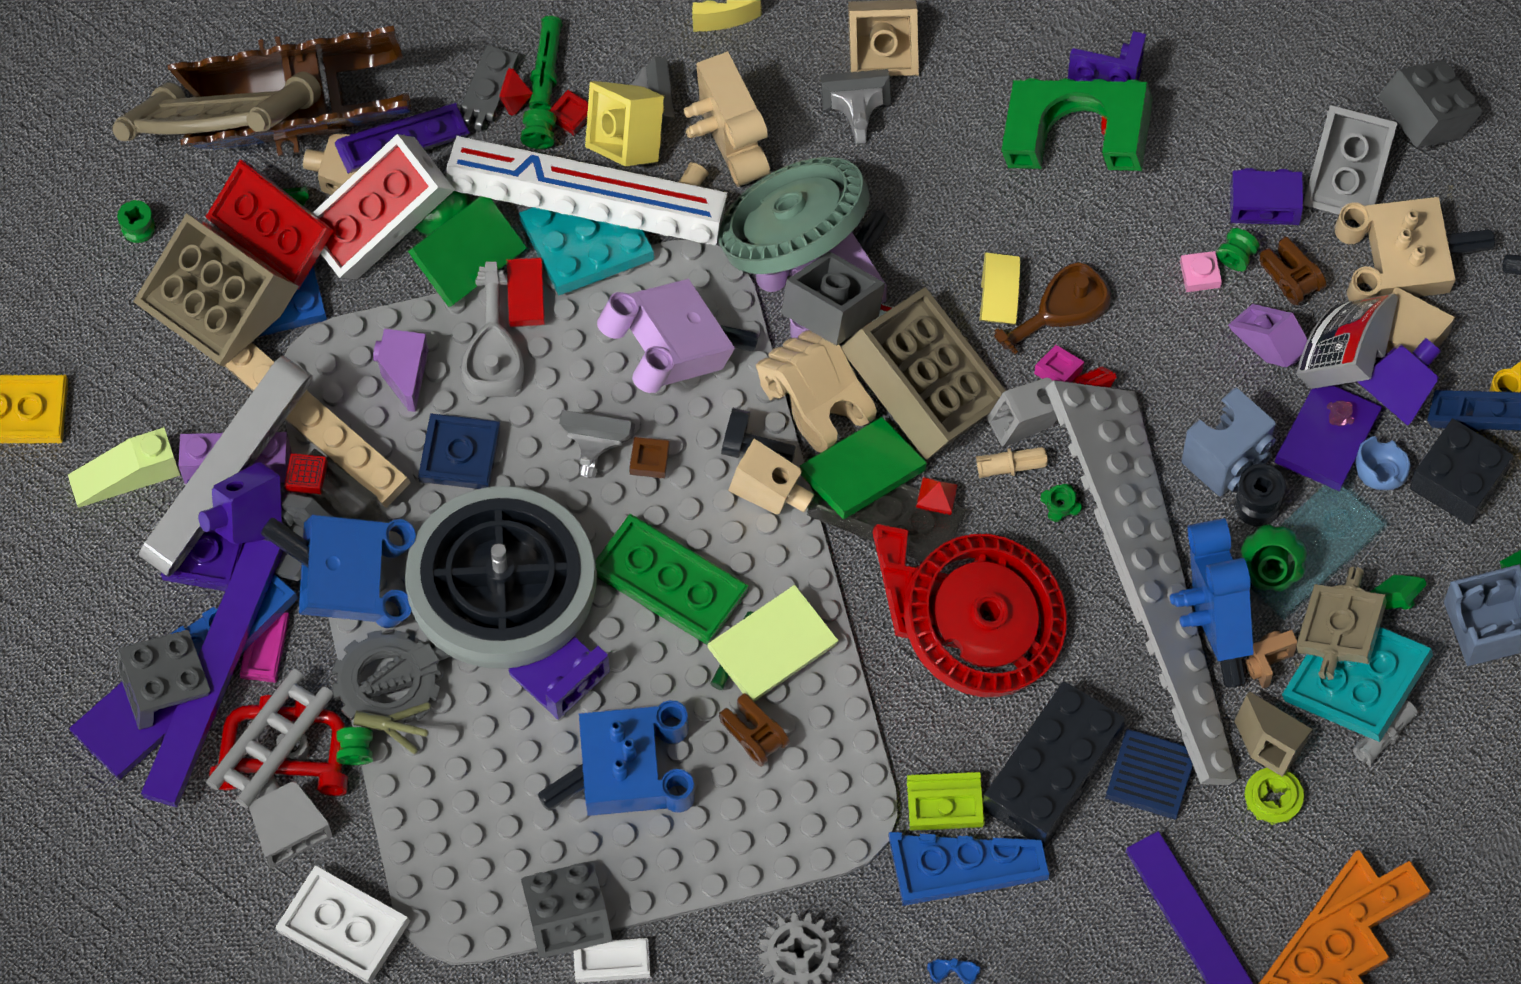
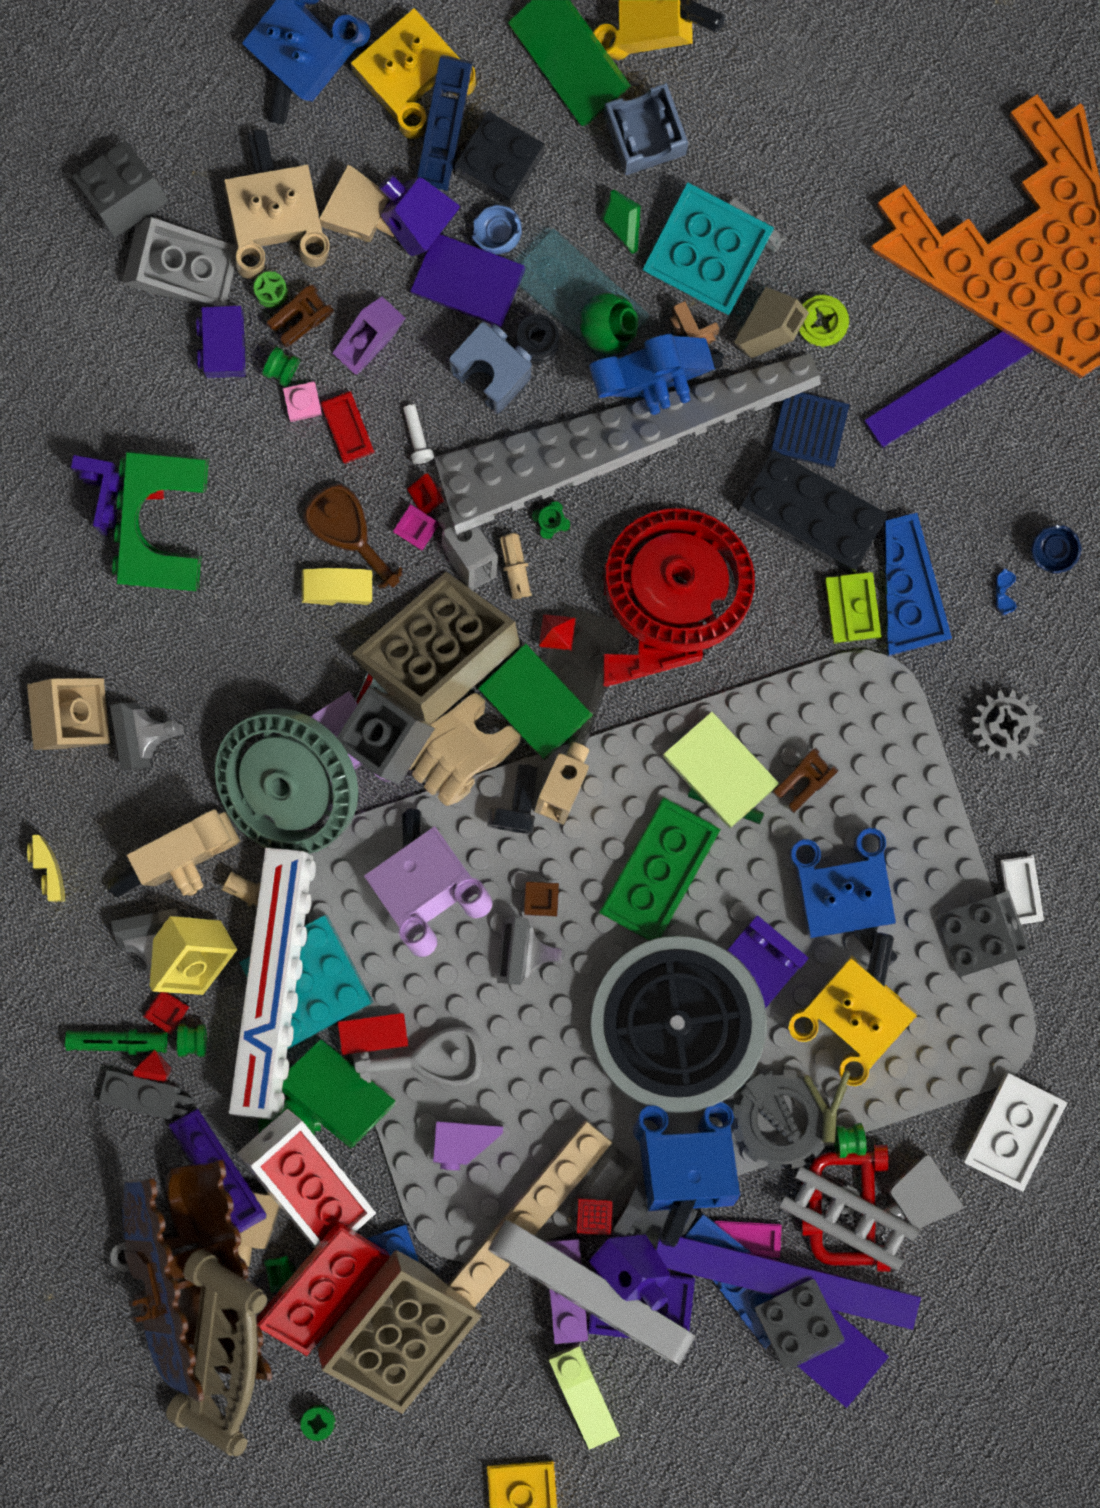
camera: 100 degrees left, 20 degrees up
(459, 451) = (544, 1078): dark blue tile -> none
(493, 759) = (859, 1009): none -> yellow piece
(1139, 379) = (421, 453): none -> white piece
(1171, 312) = (347, 427): none -> red tile
(1326, 238) = (268, 283): none -> bright green wheel
(1340, 413) = (449, 268): clear pink piece -> none
(1341, 623) = (665, 262): dark tan plate -> none
(1347, 342) = (377, 260): slope -> none

